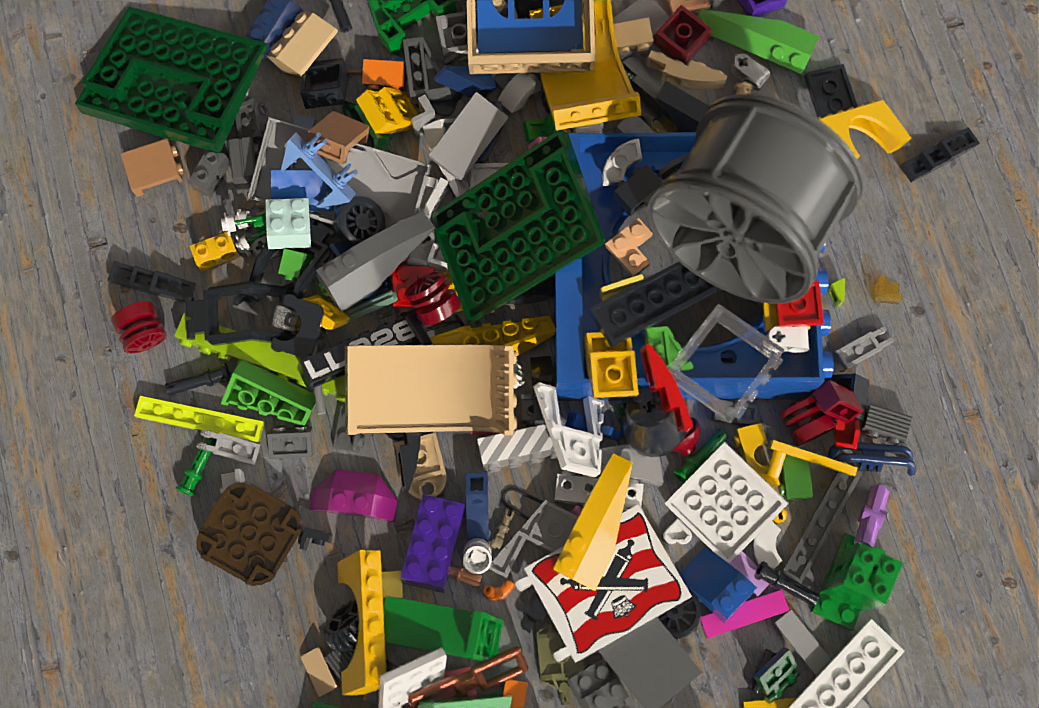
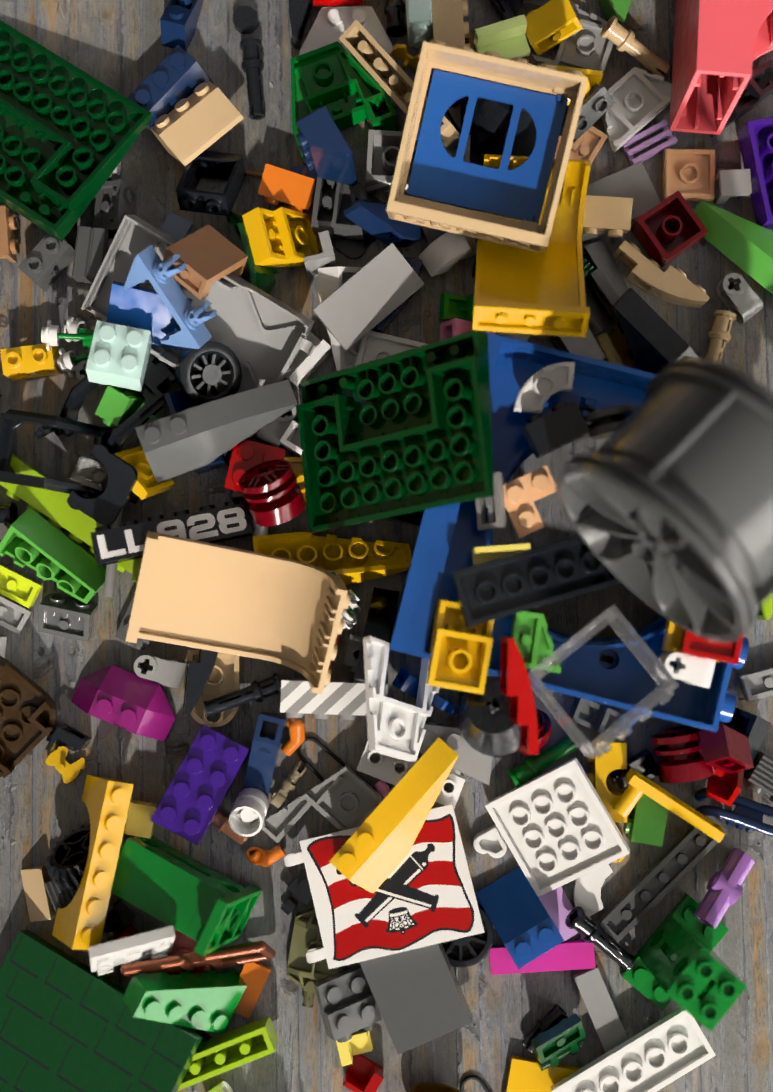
camera: 20 degrees right, 10 degrees up
(321, 565) = (68, 771): none -> yellow piece
(372, 304) = (202, 478): sand green axle -> none
(380, 463) = (165, 670): none -> light grey piece
(410, 35) = (325, 148): none -> dark blue slope
(420, 332) = (248, 528): black piece -> none
(457, 460) = (257, 691): none -> black pin
(499, 487) = (297, 736): none -> orange arm
(611, 254) = (495, 506): none -> light grey tile
(779, 435) = (641, 762): none -> black plate

